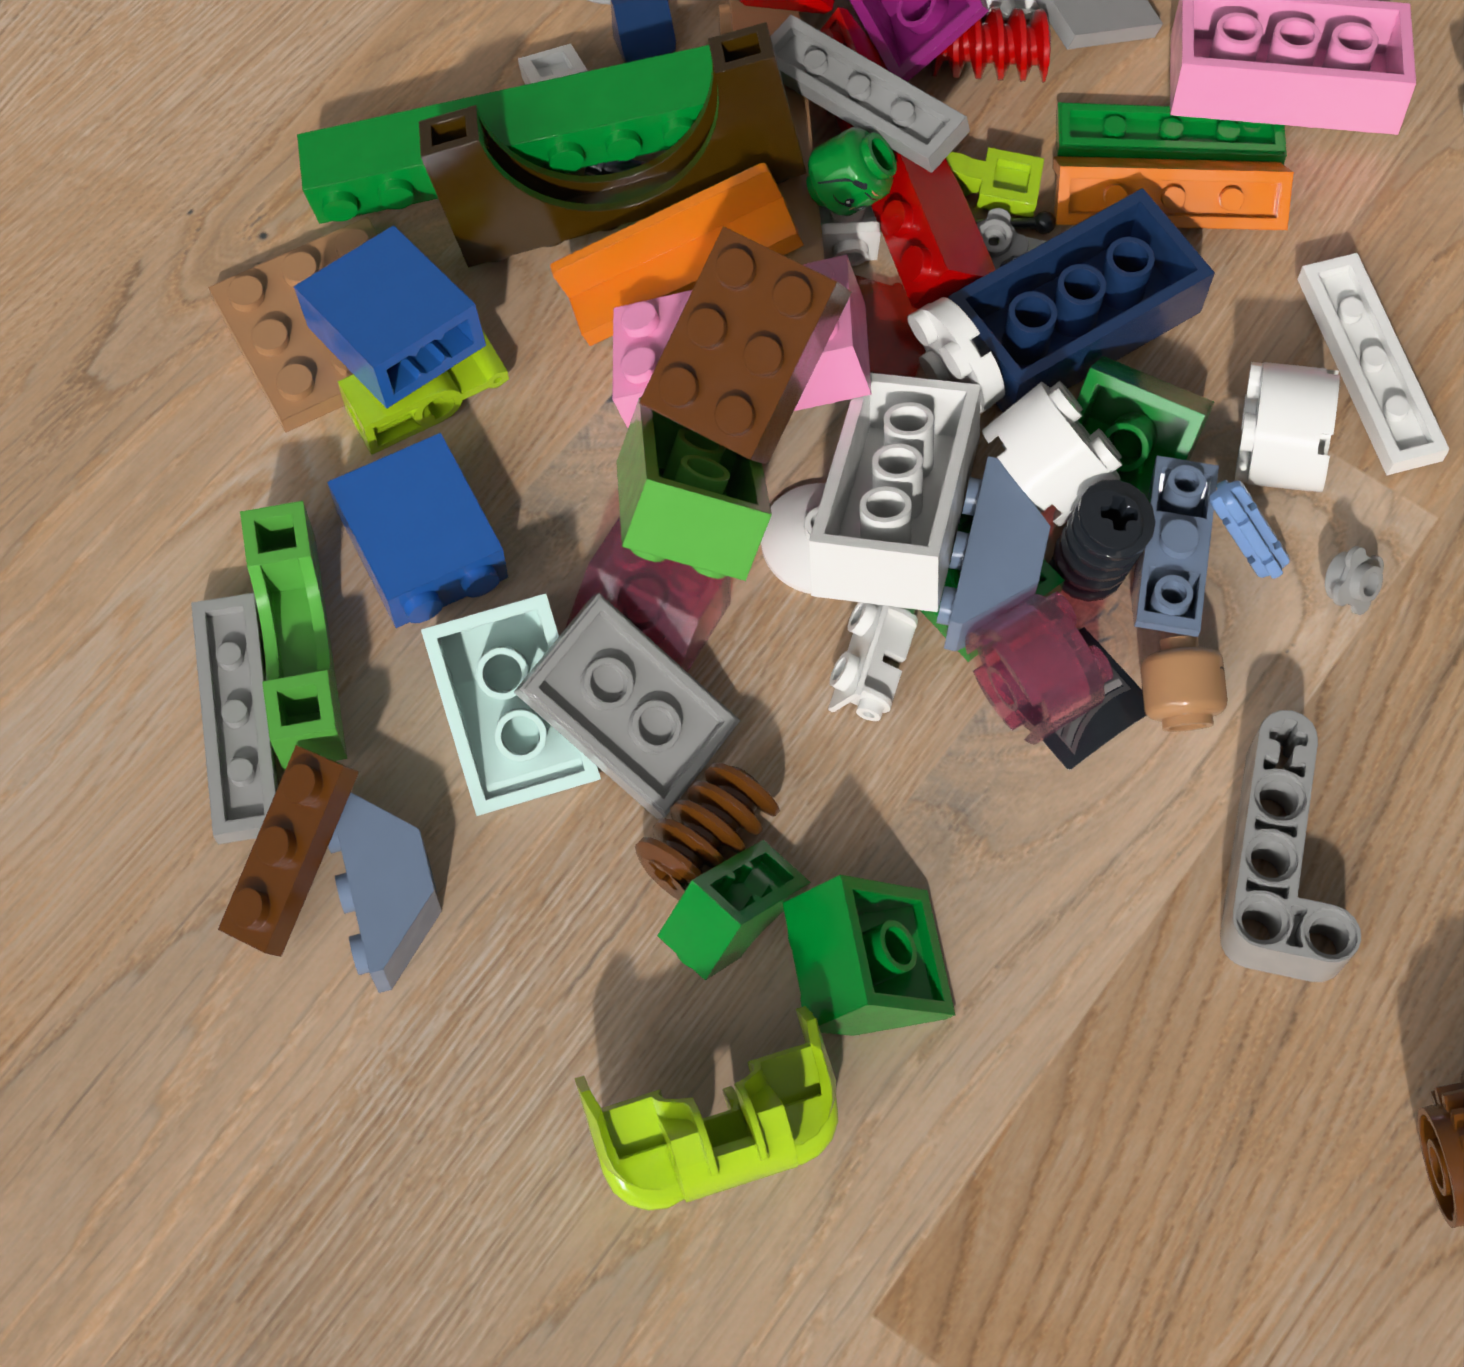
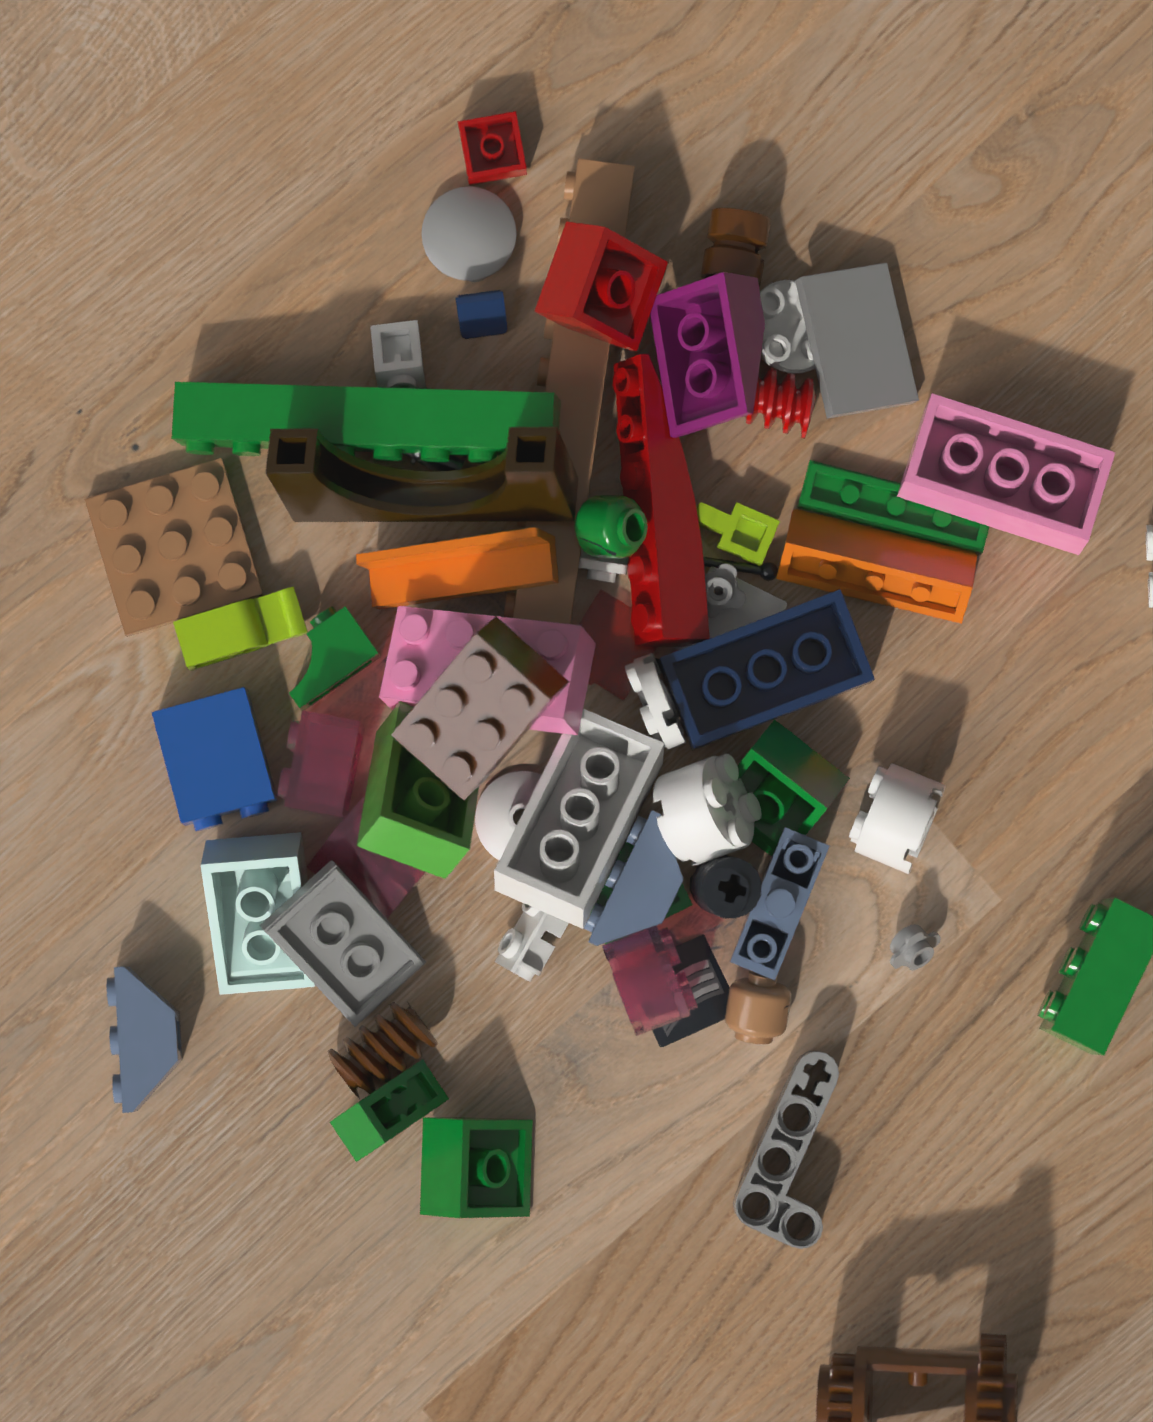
camera: 10 degrees right, 20 degrees up
(234, 715) = (56, 882): light grey plate -> none
(288, 851) = (79, 1004): reddish brown plate -> none
(295, 632) = (109, 840): bright green arch -> none
(390, 316) = (221, 580): blue brick -> none
(552, 392) = (338, 654): none -> green arch
(554, 498) = (322, 765): none -> clear pink brick
(666, 1152) = (341, 1302): lime piece -> none
(867, 94) = (633, 458): light grey plate -> none
(1249, 529) = (841, 897): medium blue axle -> none
(1372, 364) = (988, 762): white plate -> none

